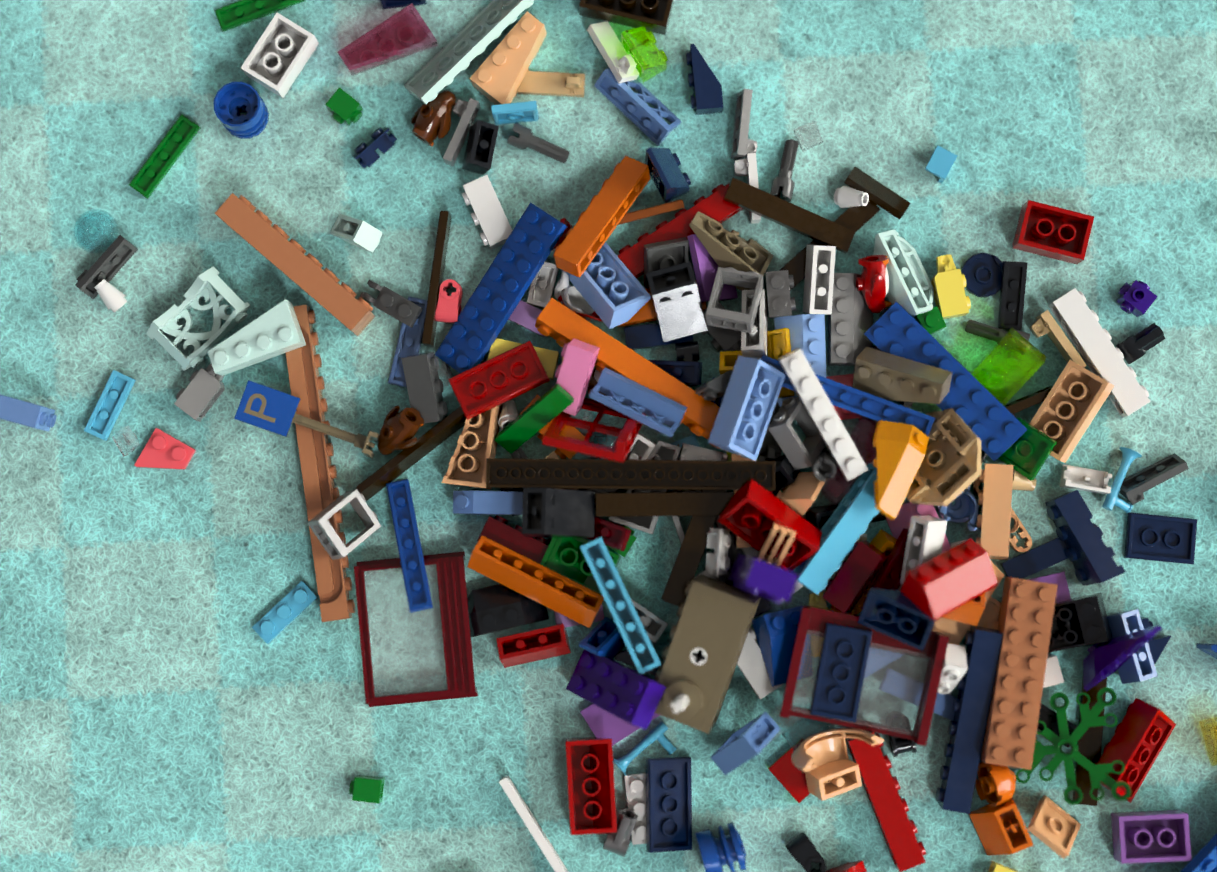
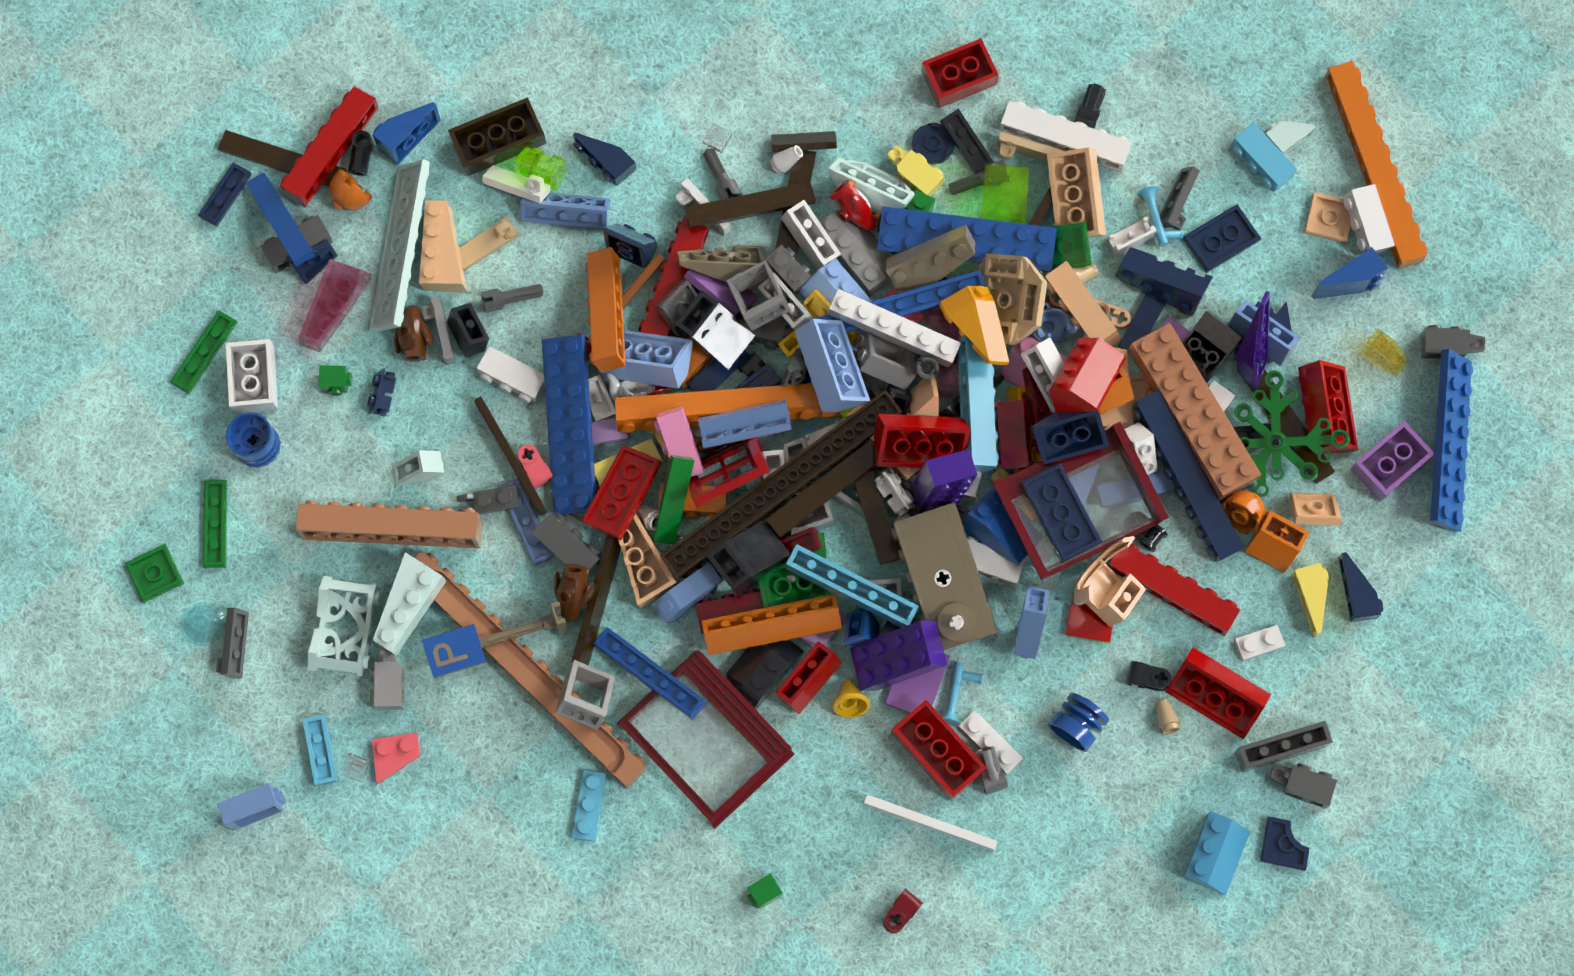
camera: 40 degrees left, 10 degrees down
(88, 160) = (154, 573): none -> green tile
(110, 295) = (255, 662): white cone -> none
(515, 112) = (475, 283): medium azure tile -> none
(553, 688) = (850, 701): none -> yellow hat
(668, 804) = (1010, 720): dark blue tile -> none
(741, 144) = (670, 181): light grey hinge -> none
(770, 558) = (933, 433): light nougat tile -> none
(940, 163) = (834, 83): medium azure panel -> none
(1135, 298) = (1060, 75): dark purple brick -> none

